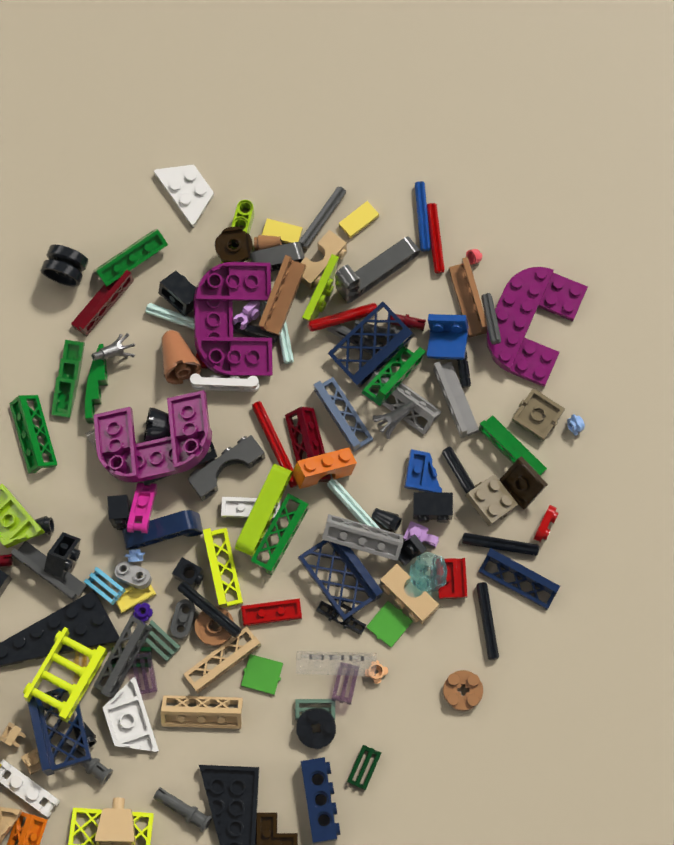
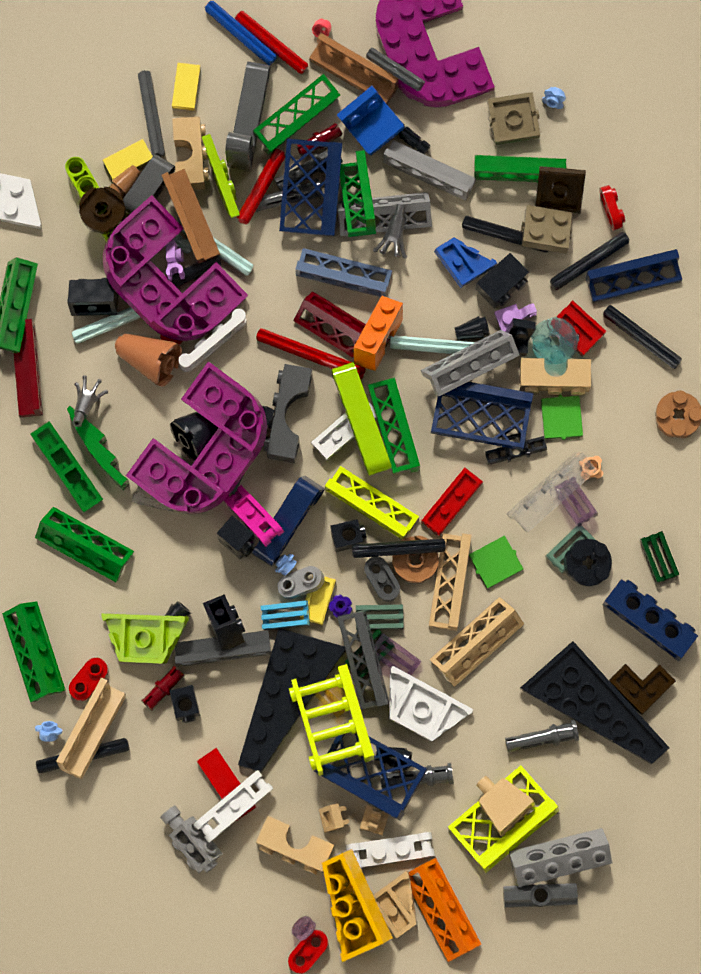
camera: 45 degrees left, 5 degrees up
(406, 300) = (301, 121): none -> green fence

